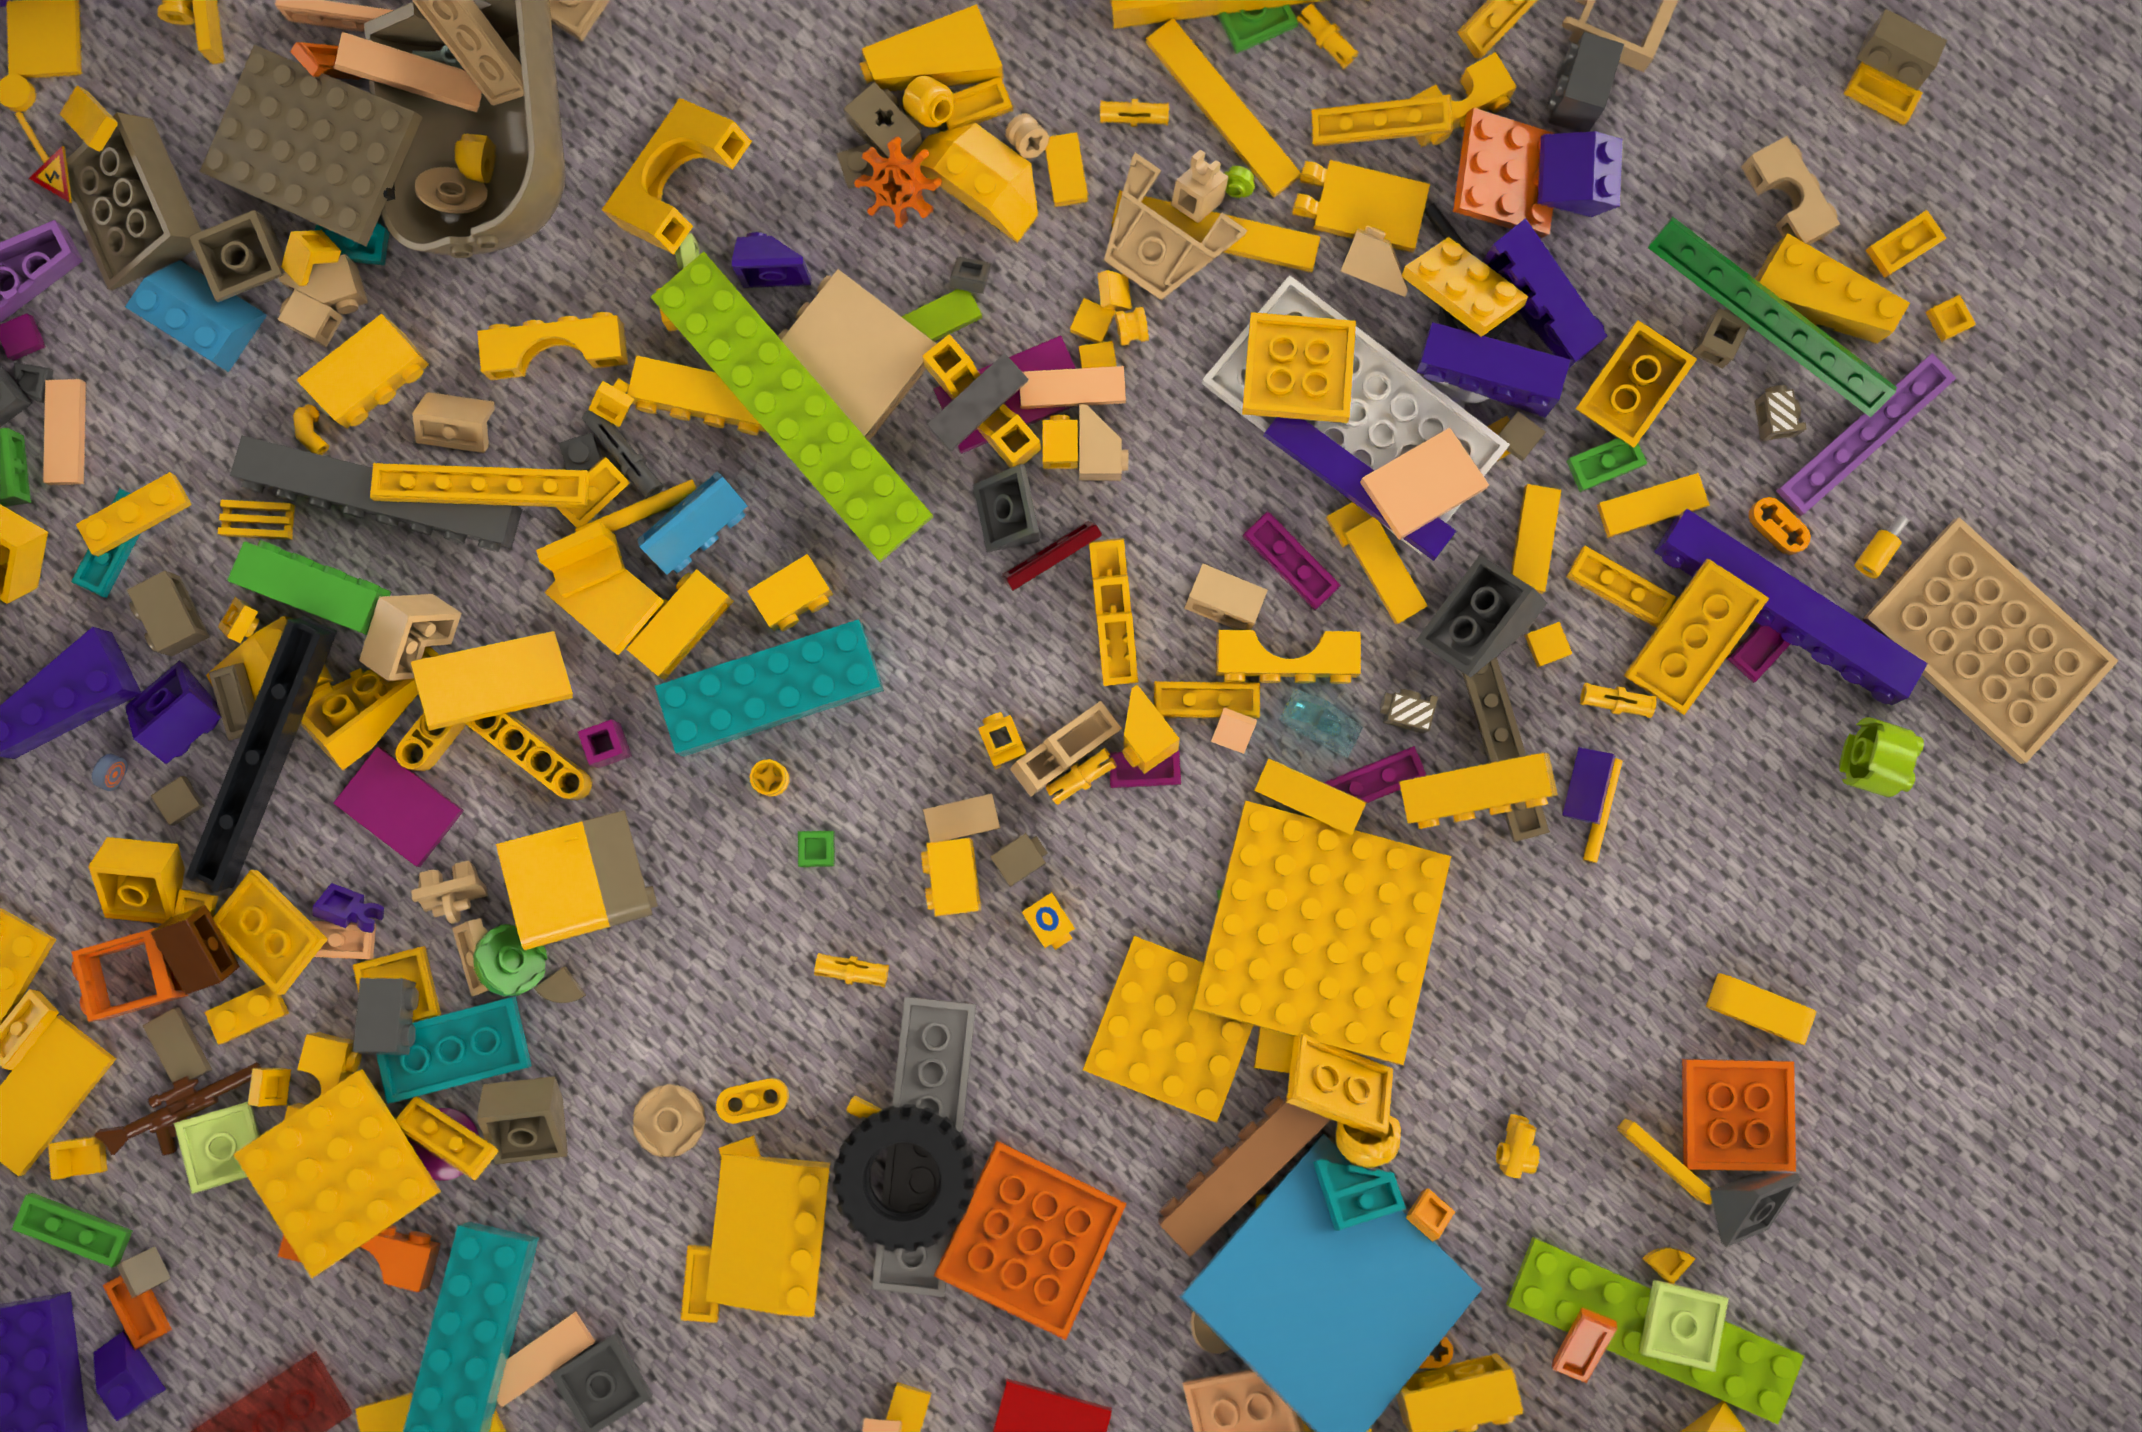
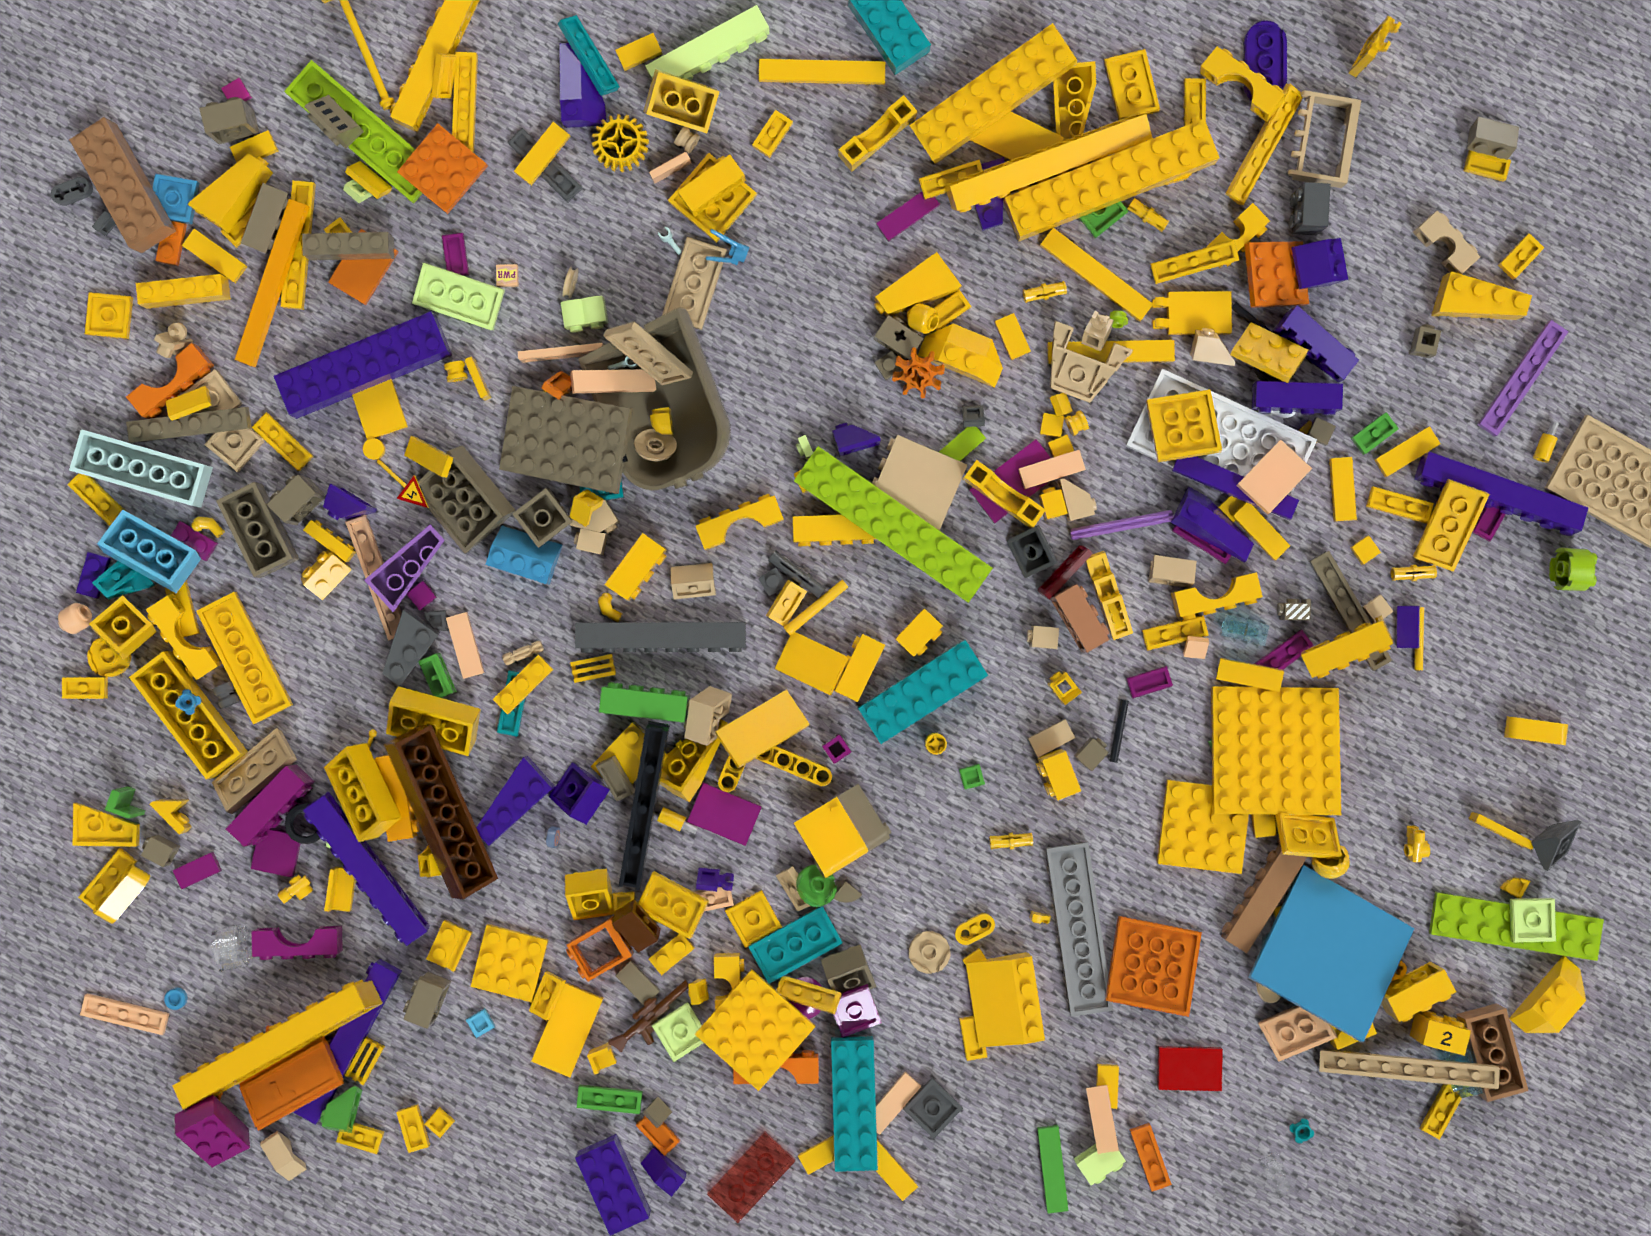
camera: 10 degrees left, 5 degrees up
(151, 466) = (523, 652): none -> tan axle
(167, 614) = (559, 737): dark tan brick -> none
(177, 800) = (595, 843): dark tan tile -> none
(239, 620) = (604, 731): yellow plate -> none
(314, 796) = (675, 821): none -> yellow piece
(385, 1016) = (756, 935): dark grey brick -> none
(449, 896) = (776, 850): tan hips -> none
(479, 485) = (724, 617): yellow tile -> none
(519, 1187) = (856, 1011): none -> tile
(582, 559) = (794, 645): yellow panel -> none
(612, 402) = (785, 547): yellow tile -> none
(683, 136) = (782, 374): yellow arch -> none
(692, 524) = (851, 606): dark azure slope -> none
(868, 1213) = (1089, 976): black tyre -> none
(977, 402) = (1001, 495): flat silver tile -> none
(989, 650) = (1043, 637): none -> tan brick
(1027, 136) = (986, 323): tan wheel -> none
(1049, 922) = (1117, 784): yellow brick -> none
(1055, 631) = (1080, 618): none -> nougat brick
(1065, 748) = (1101, 682): tan slope -> none
(1075, 835) = (1119, 731): none -> black bar
(1081, 776) = (1114, 696): yellow pin -> none
(1147, 734) = (1146, 662): yellow slope -> none
(1163, 505) = (1121, 525): none -> medium lavender axle
(1302, 534) = (1206, 521): none -> dark purple wedge
(1357, 1193) = (1332, 893): teal wing -> none
(1430, 1214) = (1375, 894): light orange tile -> none
(1481, 617) = (1324, 547): dark grey slope -> none
(1547, 740) = (1377, 607): none -> tan tile
(1584, 1345) = (1479, 945): orange tile -> none
(1635, 383) = (1381, 384): yellow slope -> none
(1738, 1115) = (1536, 793): orange plate -> none
(1772, 317) = (1453, 325): green plate -> none
(1778, 414) = (1468, 379): dark tan brick -> none
(1784, 519) = (1481, 449): light orange beam -> none
(1950, 318) = (1556, 294): yellow tile -> none

